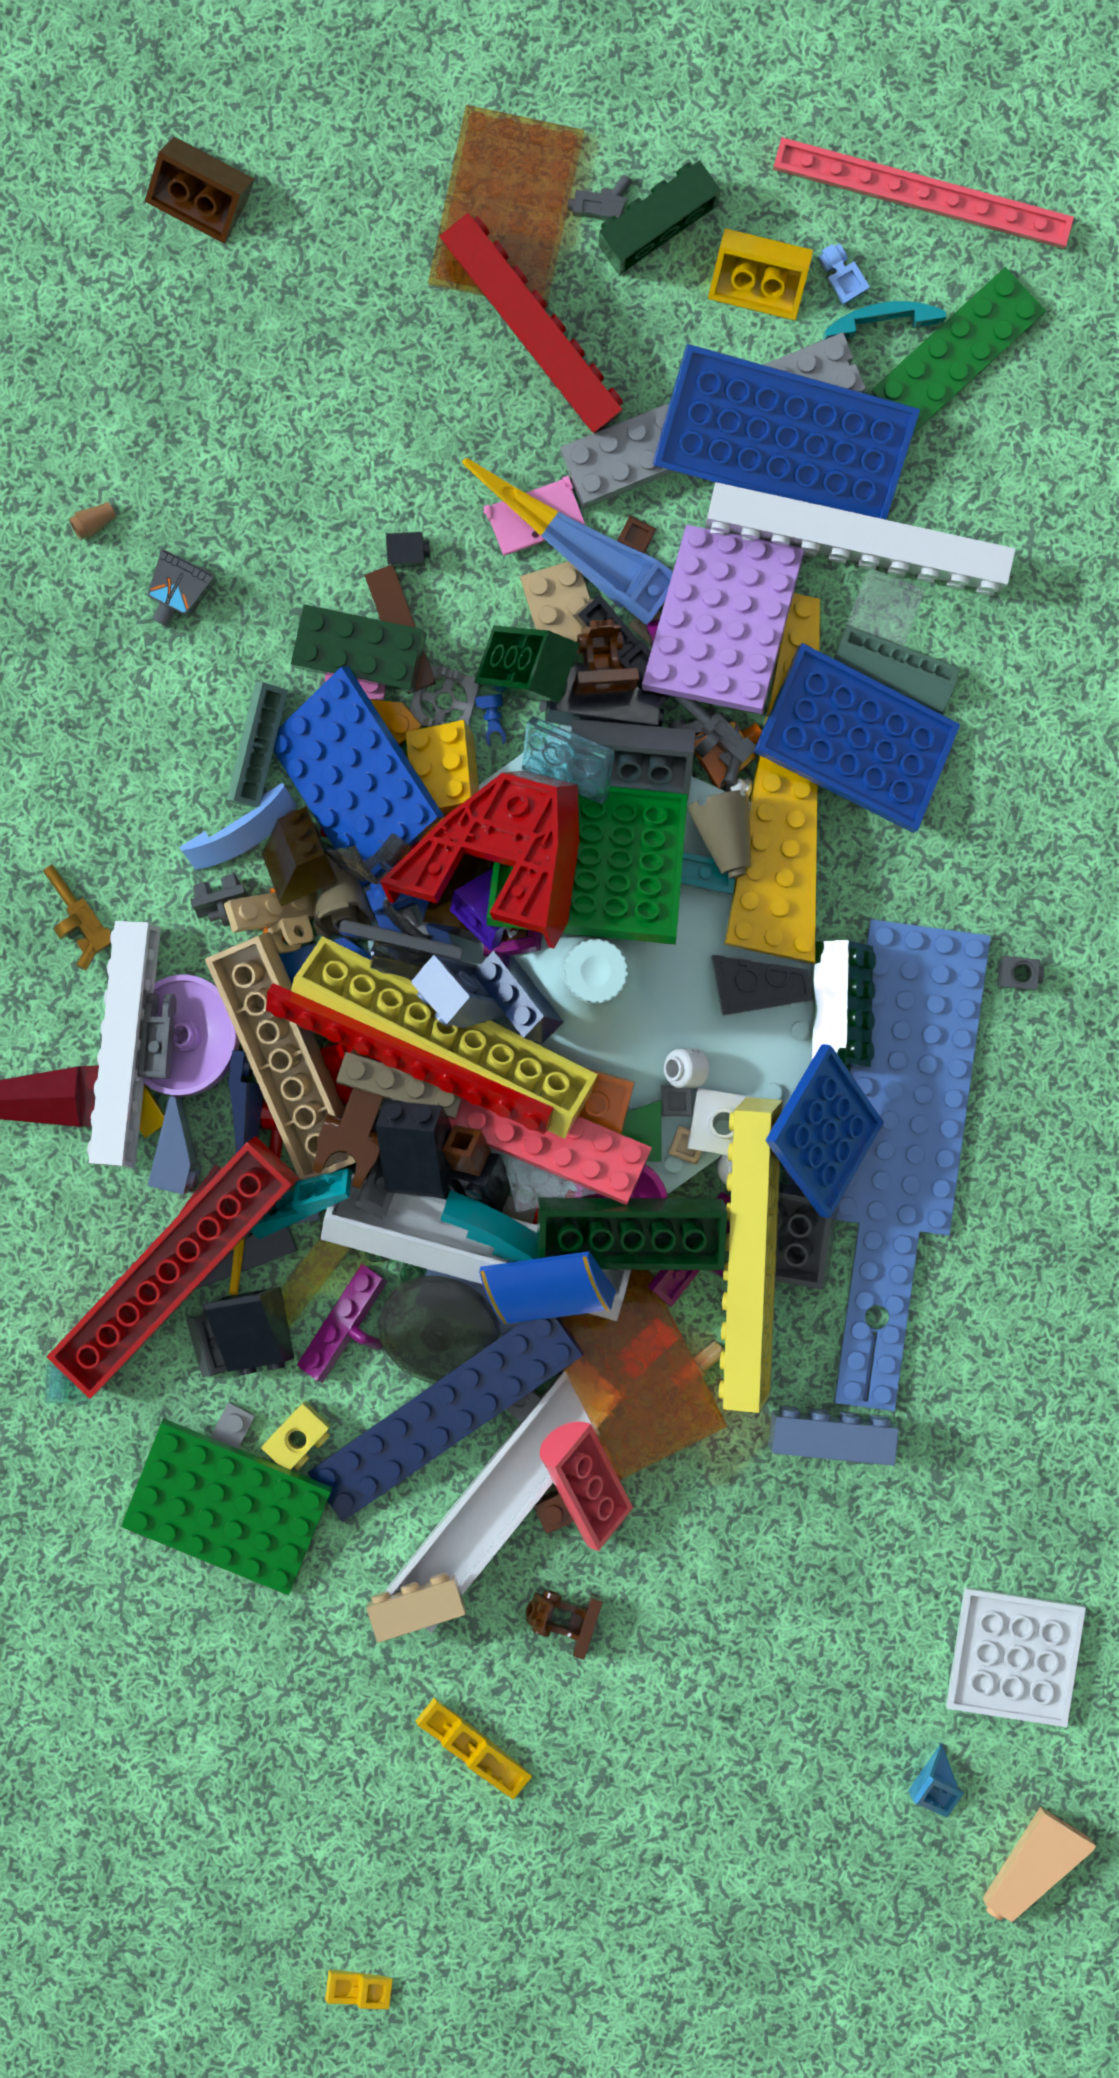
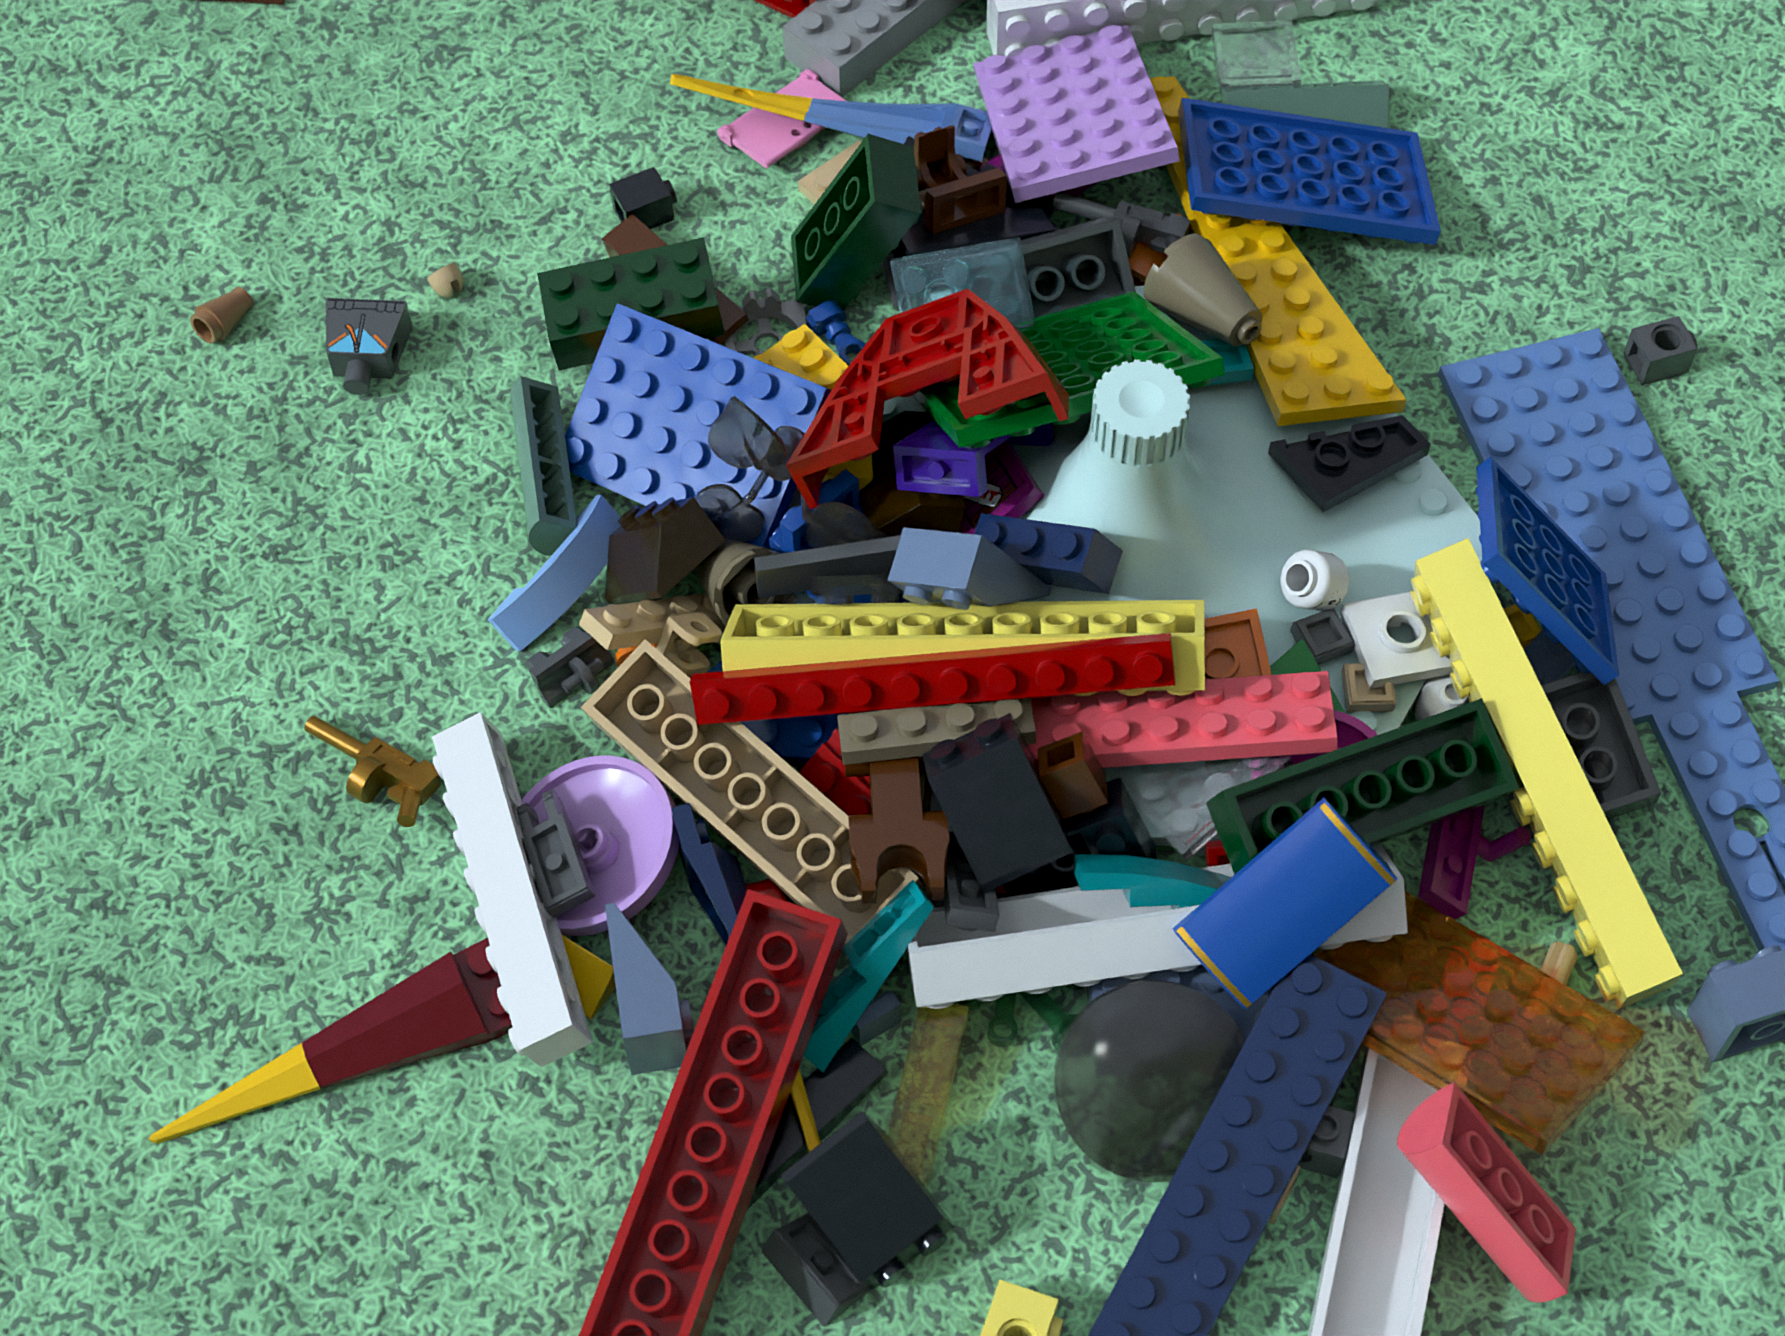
camera: 25 degrees left, 30 degrees down
(251, 555) = (446, 280): none -> tan hinge
(344, 1324) = (1004, 1147): magenta plate -> none
(552, 1512) = (1465, 1277): reddish brown brick -> none
(636, 534) = (919, 91): reddish brown tile -> none
(844, 1000) = (1460, 428): brick -> none

